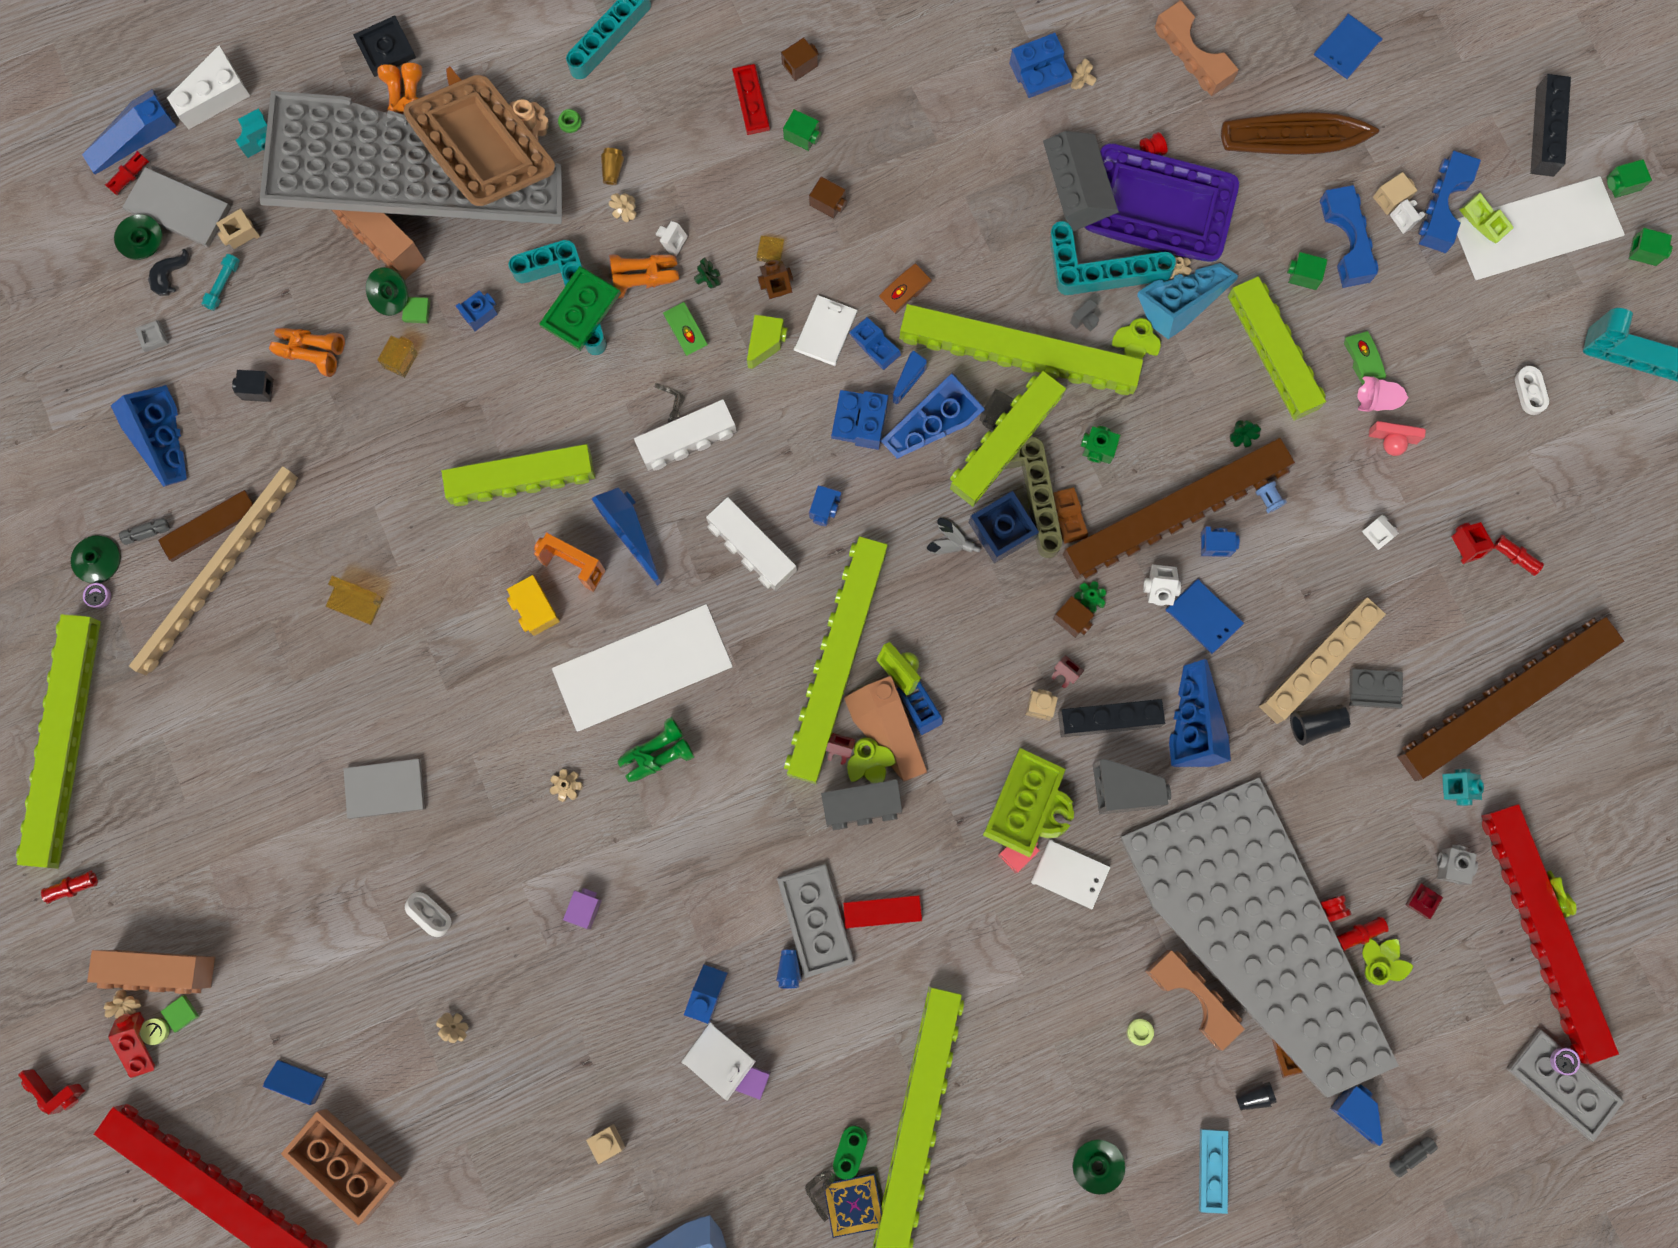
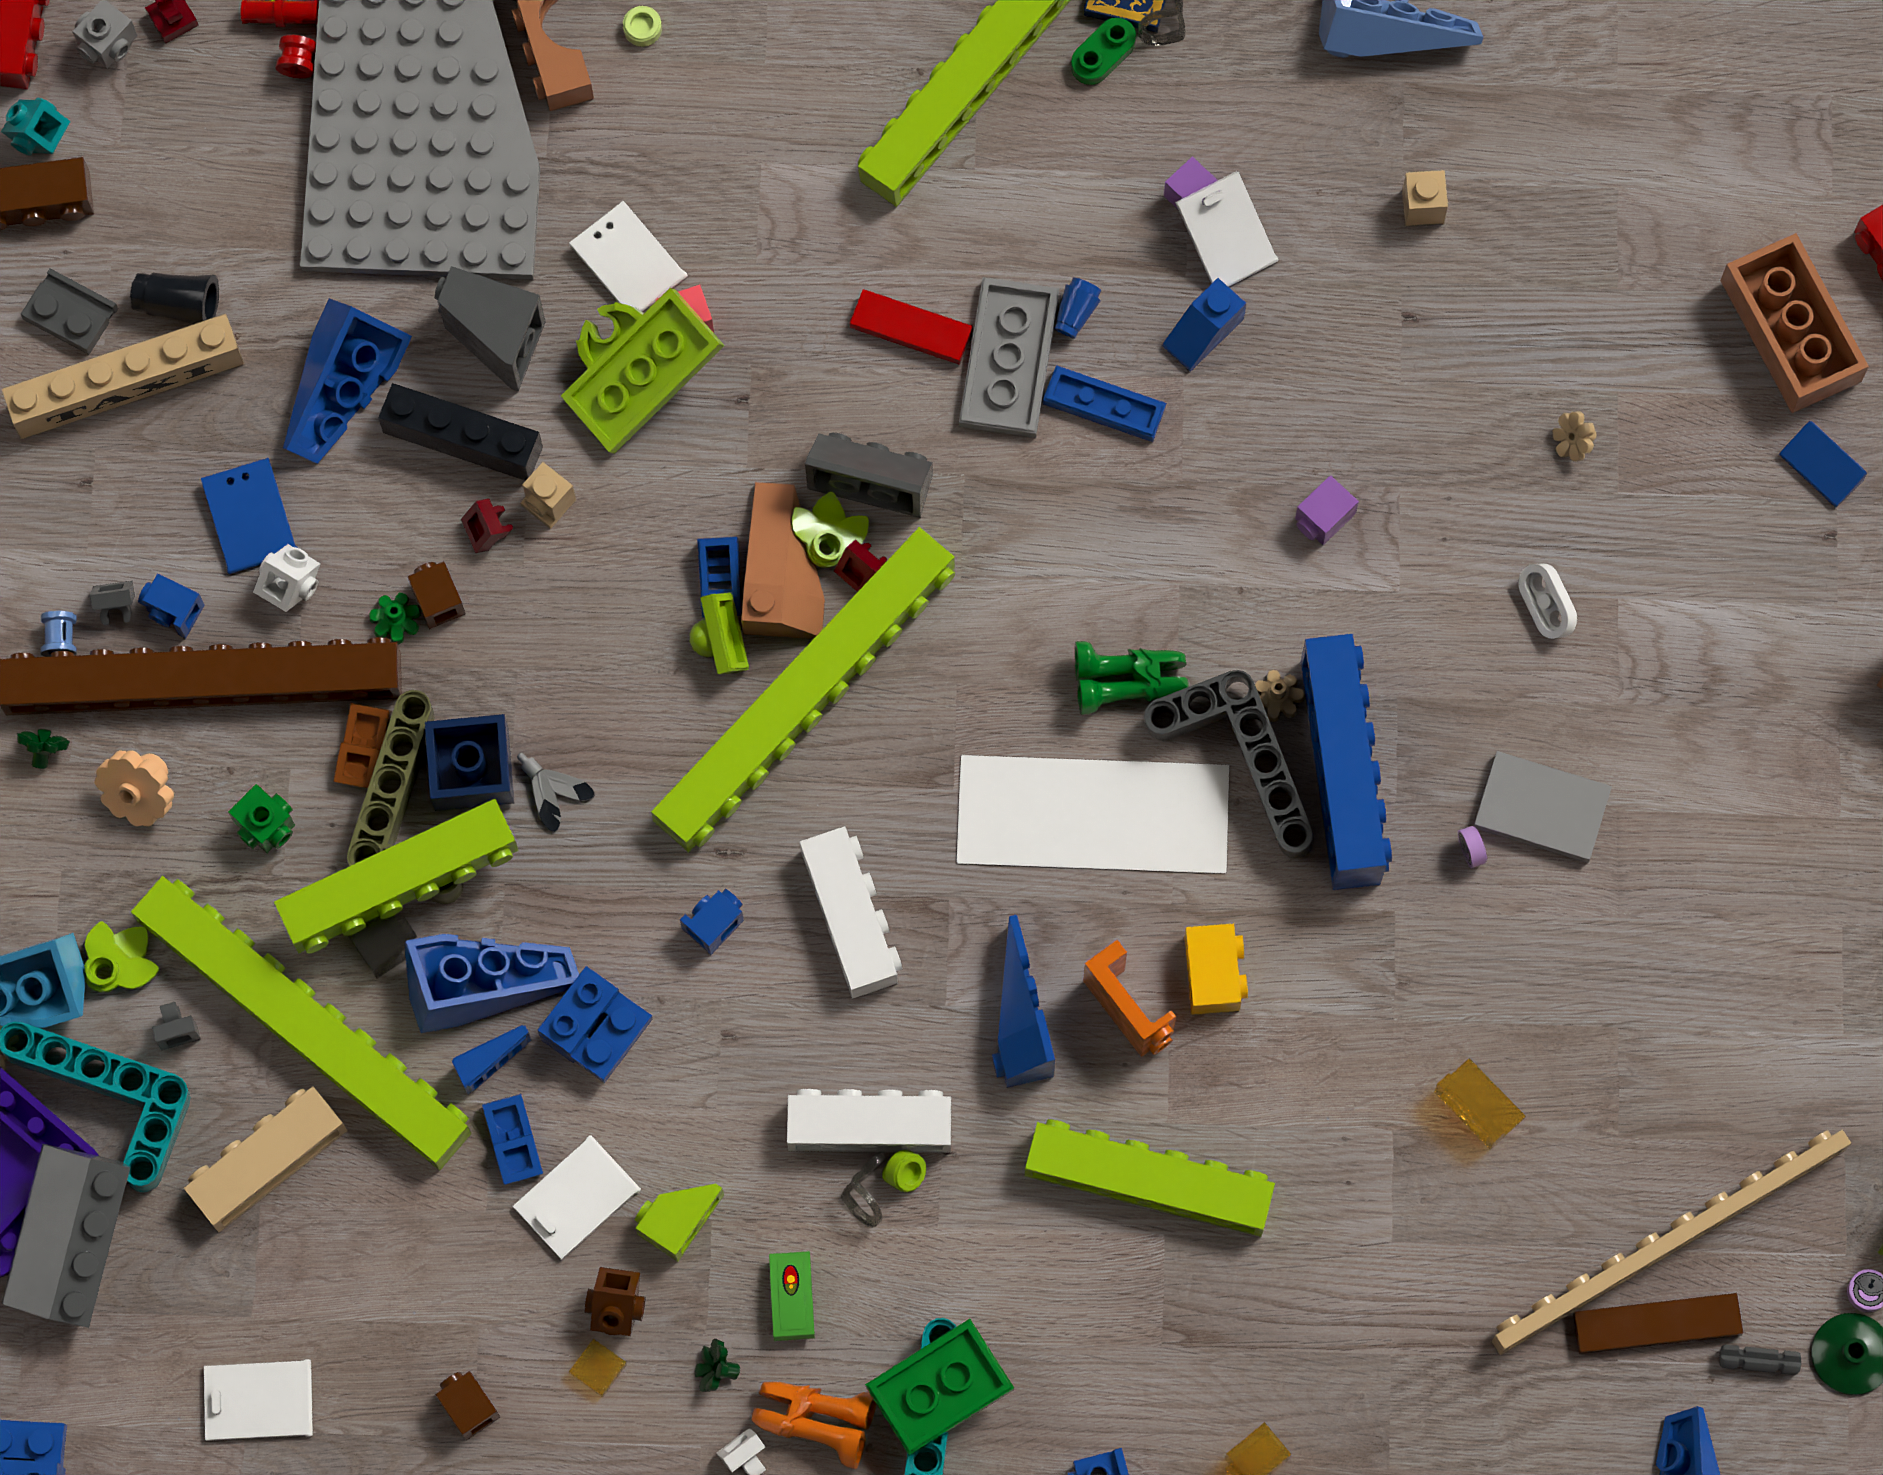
camera: 155 degrees left, 5 degrees down
(413, 744) = (1472, 846): none -> lavender tile
(505, 754) = (1343, 761): none -> blue brick
(564, 741) = (1251, 746): none -> dark grey beam
(654, 418) = (905, 1171): none -> lime tile
(745, 918) = (1104, 403): none -> blue tile
(905, 287) = (422, 1202): dark orange slope -> none
(938, 157) = (258, 1400): none -> white container
(999, 271) = (265, 1158): none -> tan brick
(1179, 431) = (135, 787): none -> light nougat plant
(1253, 531) = (113, 596): none -> dark grey tile

